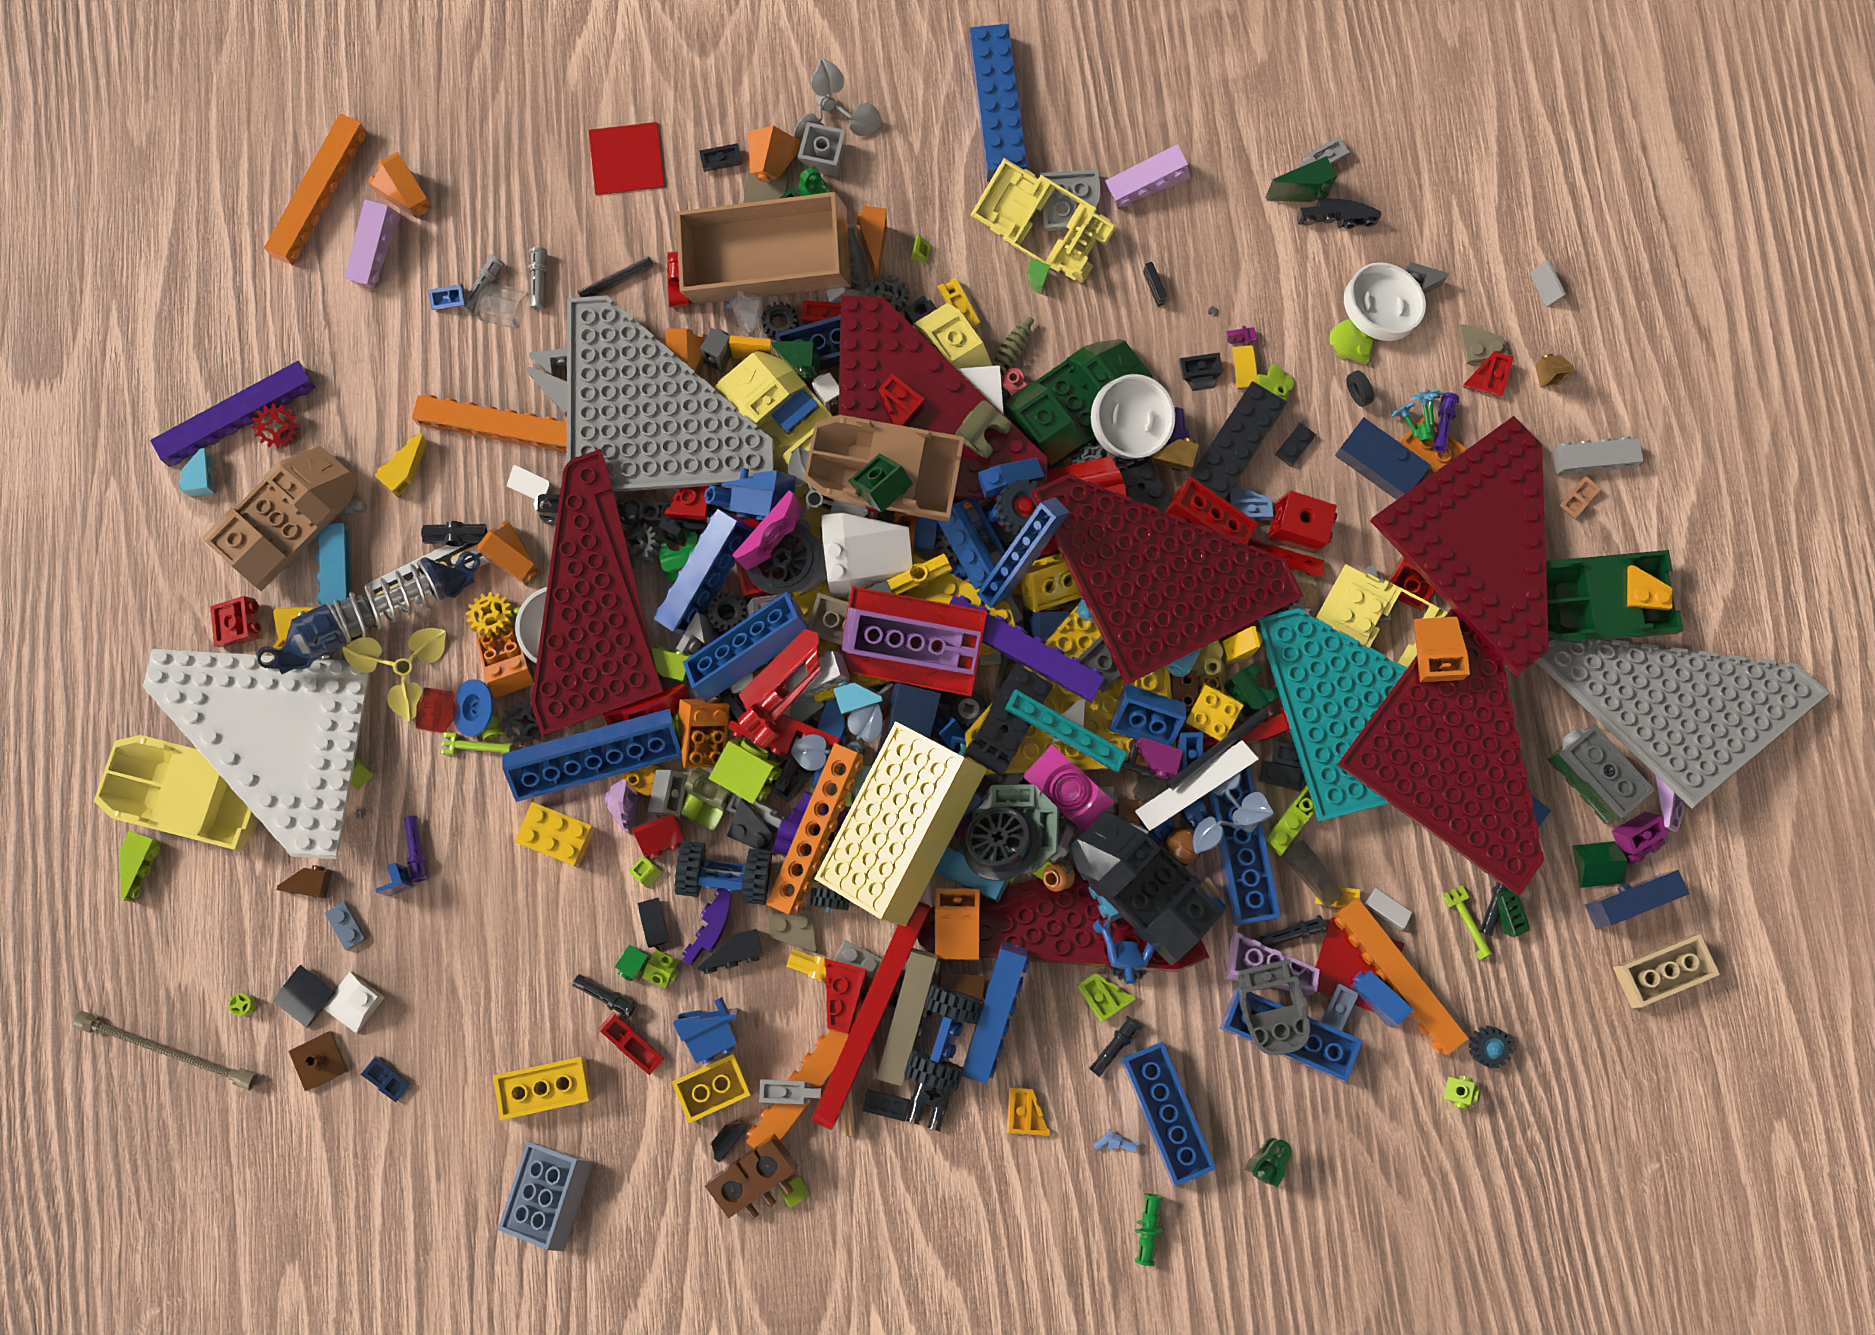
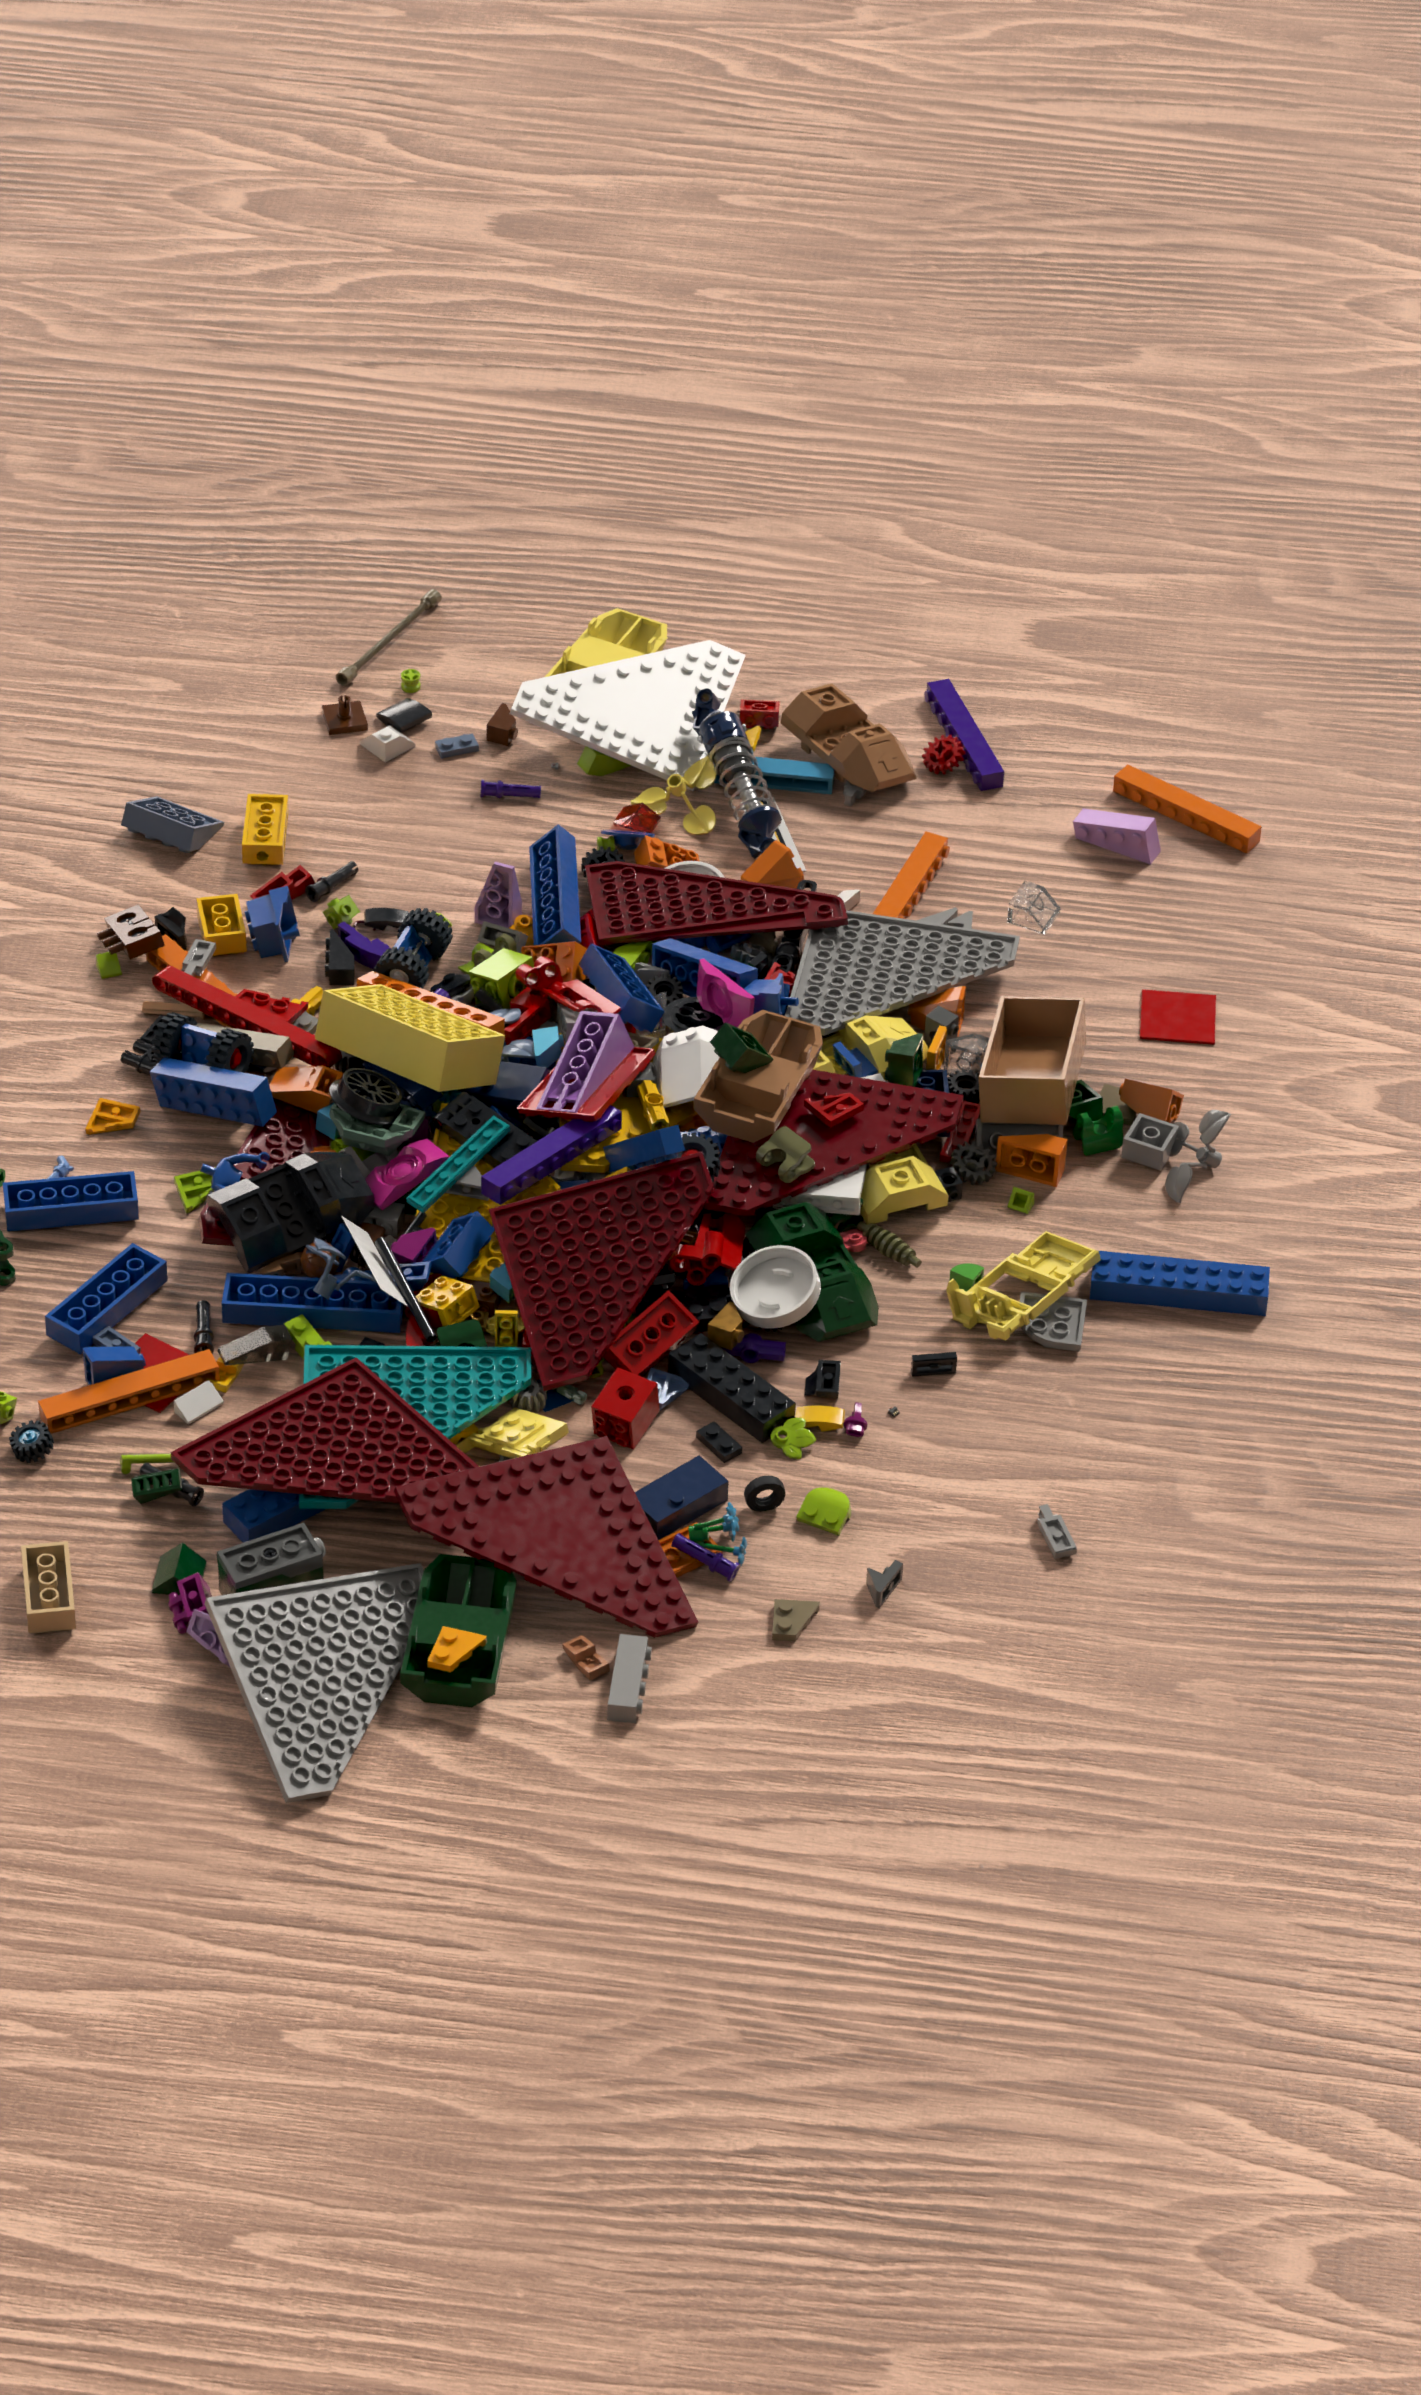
camera: 105 degrees right, 35 degrees down
(135, 861) = (553, 635): lime slope -> none
(198, 475) = (910, 708): medium azure slope -> none
(385, 1078) = (315, 751): dark blue slope -> none
(398, 186) = (1175, 860): orange slope -> none
(400, 880) = (484, 767): blue panel -> none
(402, 468) = (879, 826): yellow slope -> none
(447, 297) = (1051, 876): slope -> none
(453, 533) = (804, 846): black piece -> none
(455, 744) = (597, 827): lime hinge -> none
(487, 275) = (1067, 903): light grey pin -> none
(489, 614) = (717, 856): yellow gear -> none
(537, 271) = (1065, 937): light grey pin -> none
(555, 834) = (474, 870): yellow brick -> none
(618, 276) = (1038, 978): black axle -> none
(632, 963) = (357, 886): green brick -> none
(659, 836) = (464, 926): red slope -> none
(720, 157) = (1161, 1073): black plate -> none
(958, 300) = (949, 1216): yellow plate -> none
(997, 478) = (731, 1168): blue slope -> none
(1121, 1038) = (153, 1191): black pin -> none
(1149, 177) = (1061, 1383): lavender wedge -> none
(1250, 953) = (177, 1296): lavender wedge -> none
(1278, 1029) = (115, 1270): dark grey slope -> none
(1295, 560) = (580, 1416): red plate -> none
(1304, 183) = (1022, 1501): dark green slope -> none
(1345, 212) = (980, 1530): black slope -> none
(1384, 301) = (860, 1533): white brick -> none
(1440, 649) = (442, 1441): orange slope -> none
(1491, 375) = (751, 1612): red wing -> none
(1547, 283) = (850, 1691): light grey slope -> none
(1553, 370) = (741, 1658): pearl gold slope -> none
(1636, 899) = (130, 1577): dark blue brick -> none

